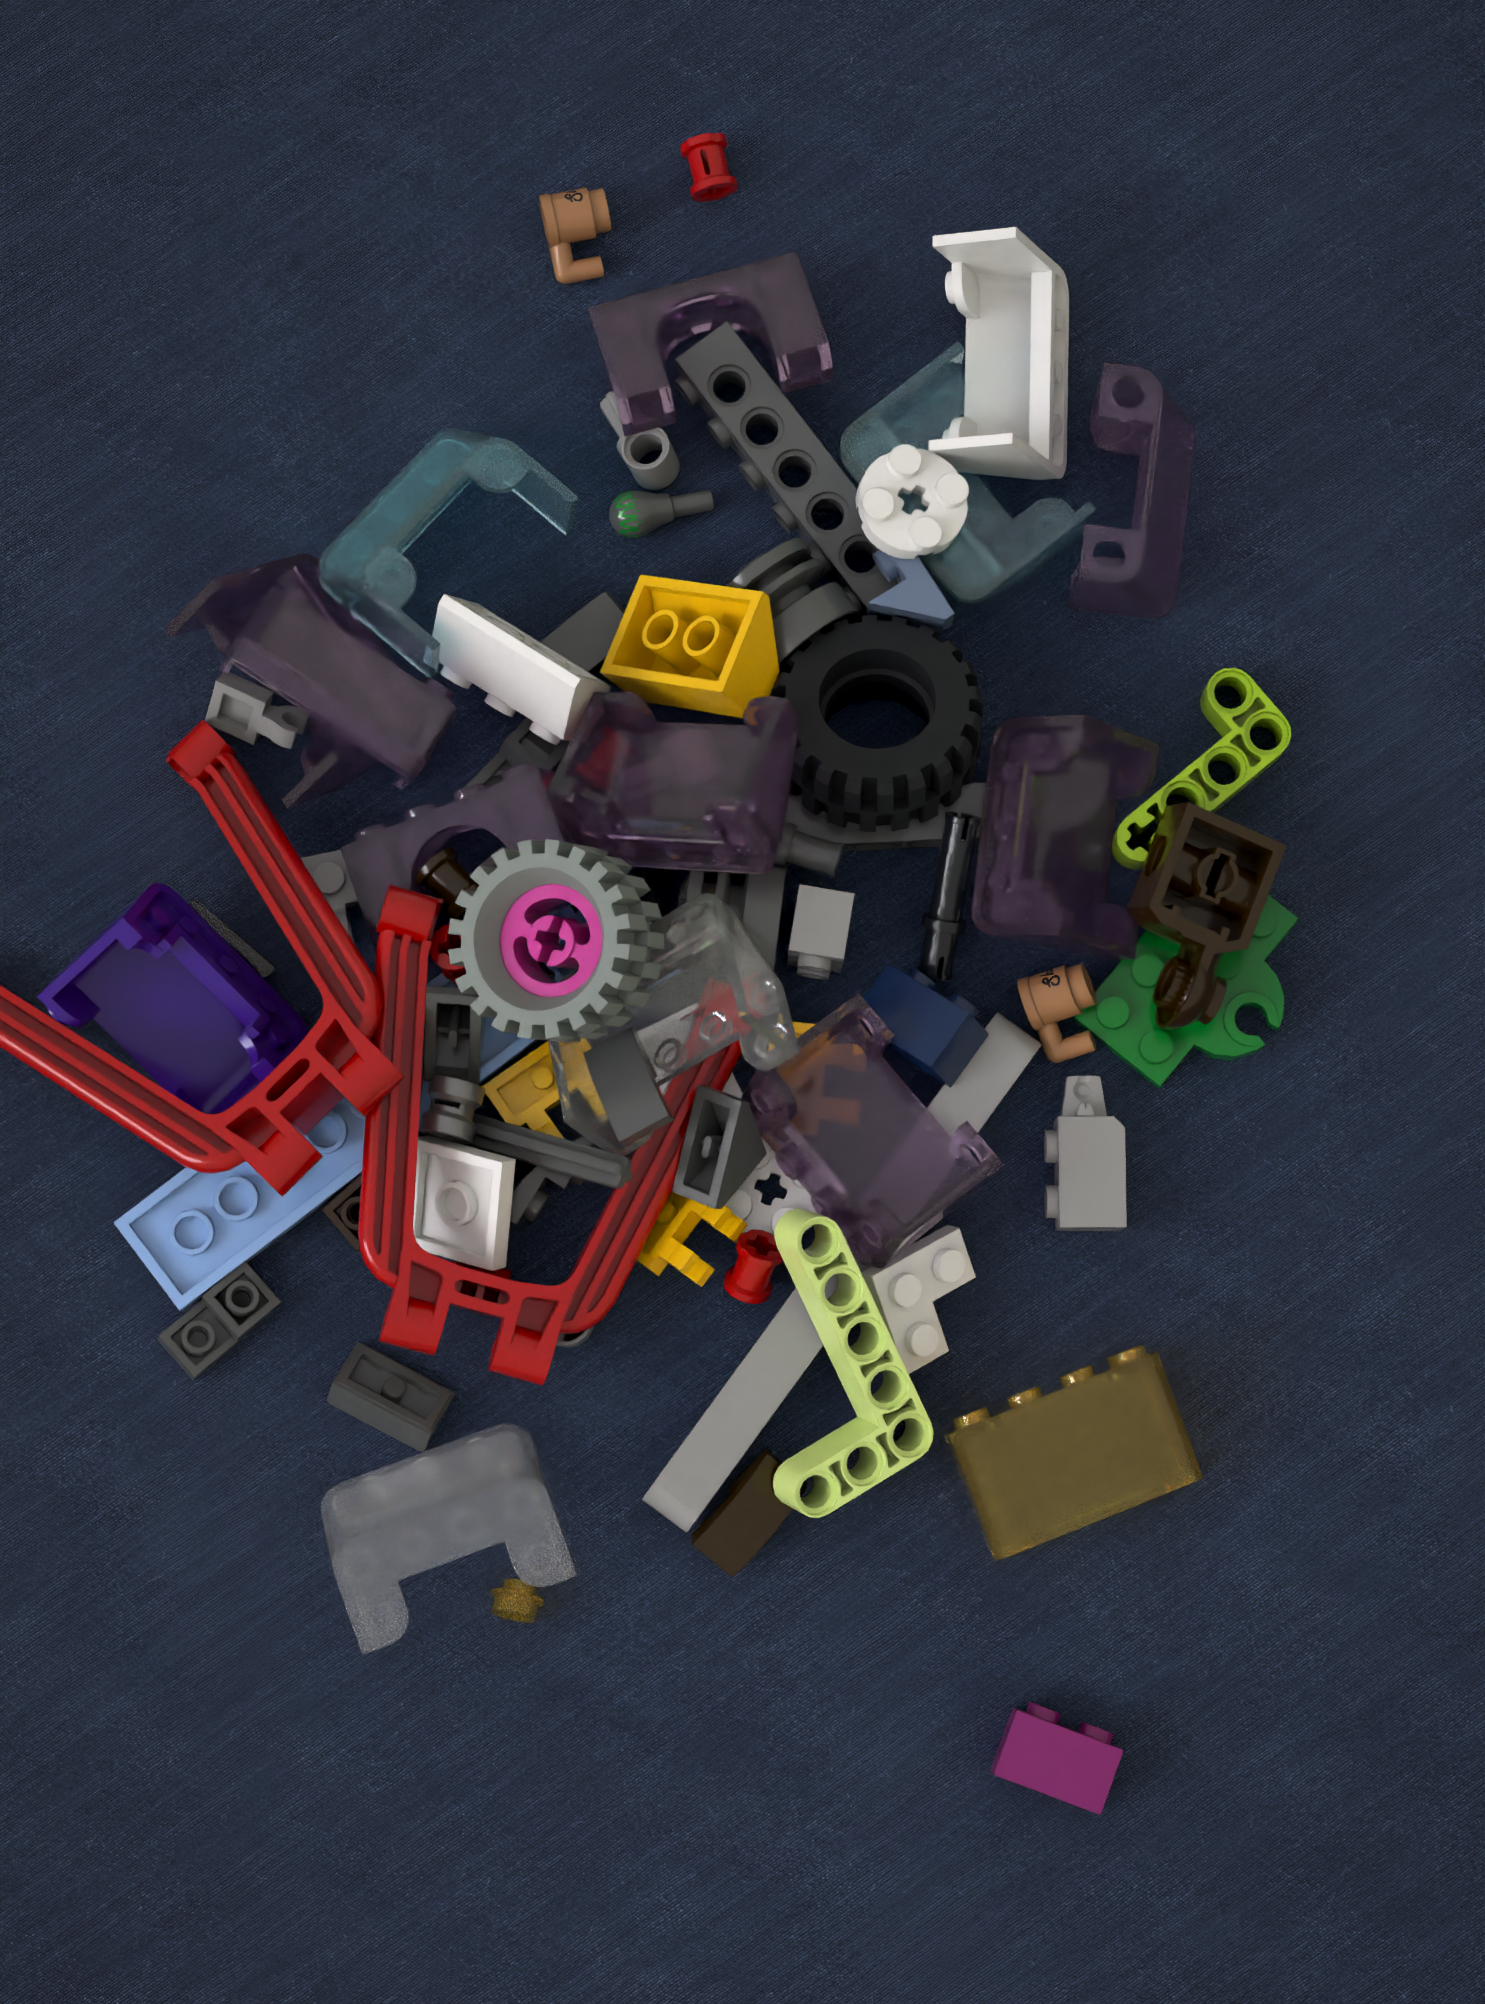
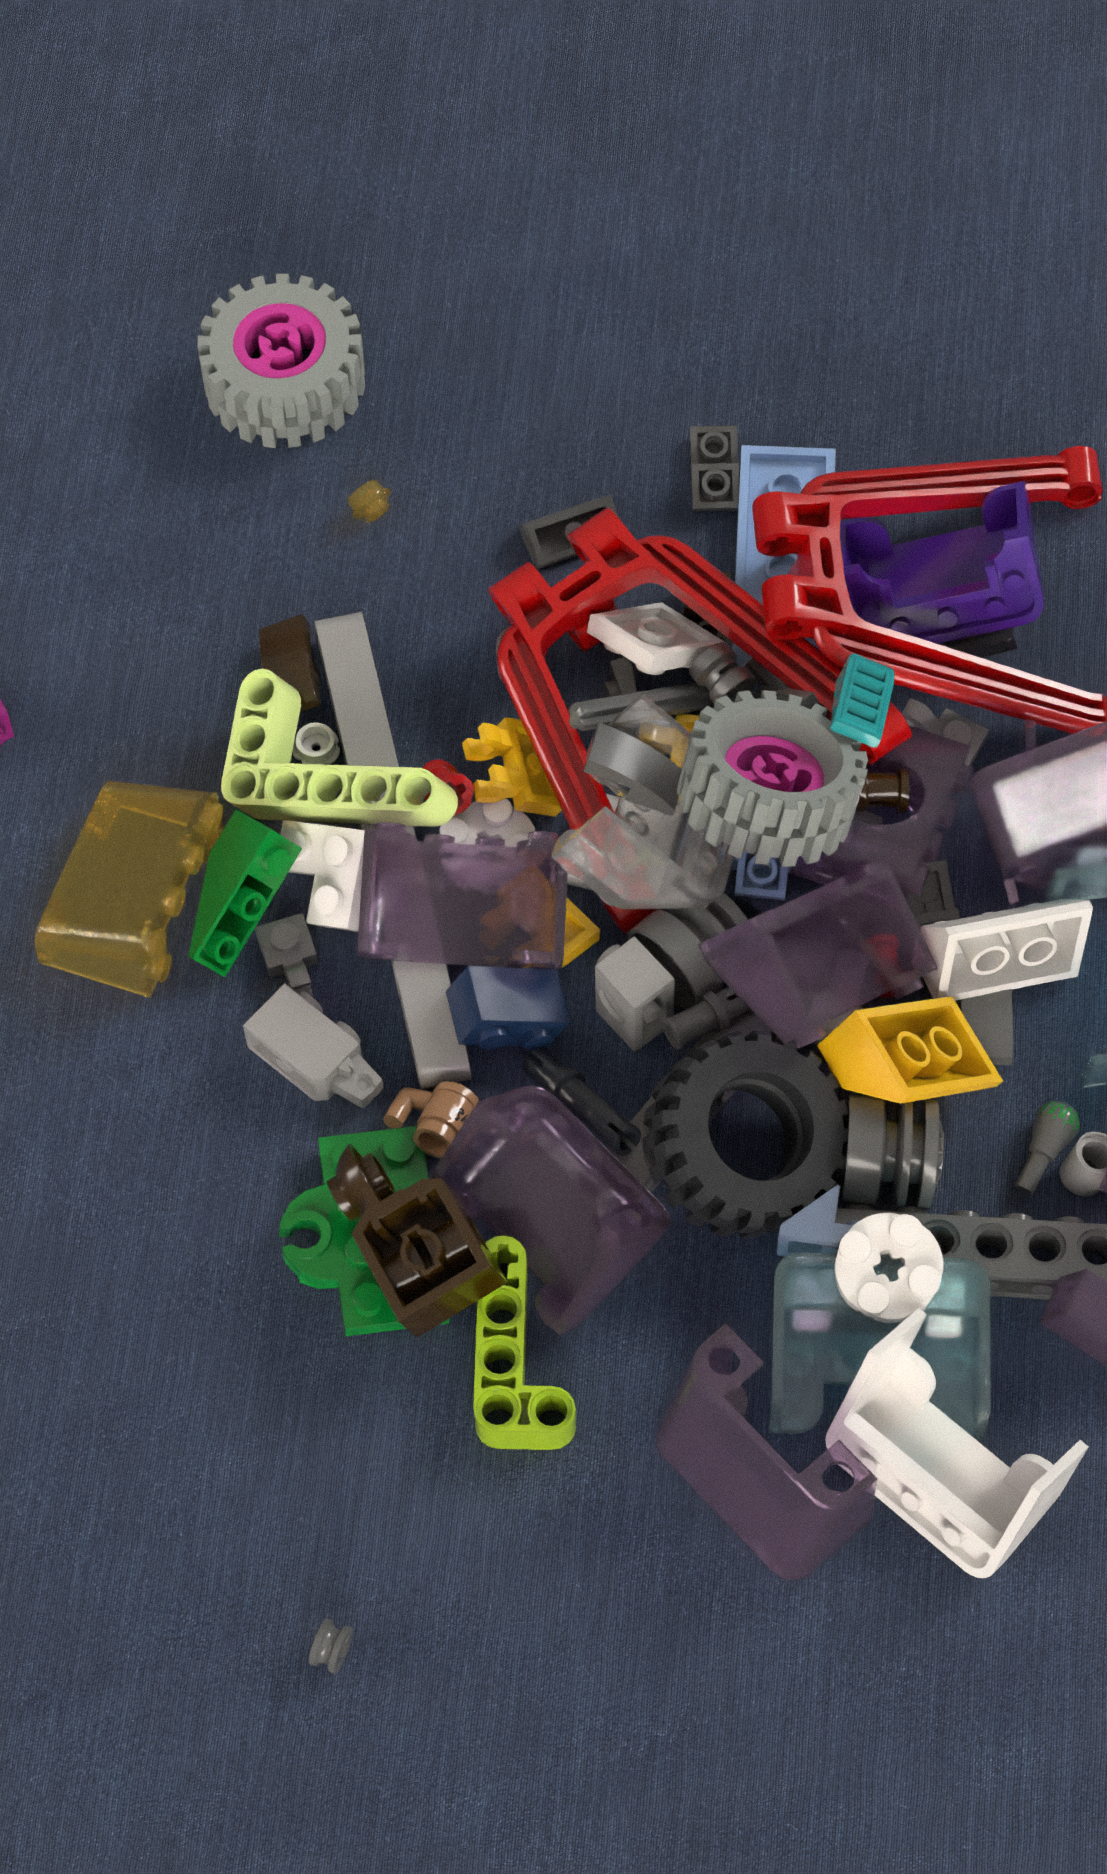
camera: 135 degrees right, 20 degrees down
(386, 939) = (862, 700): none -> teal slope
(435, 1512) = (464, 497): clear windscreen -> none
(503, 1805) = (278, 390): none -> light grey wheel
(718, 1148) = (538, 803): dark grey slope -> none
(797, 1408) = (316, 735): none -> white plate
(994, 1355) = (237, 888): none -> green slope
(1009, 1271) = (288, 950): none -> flat silver plate

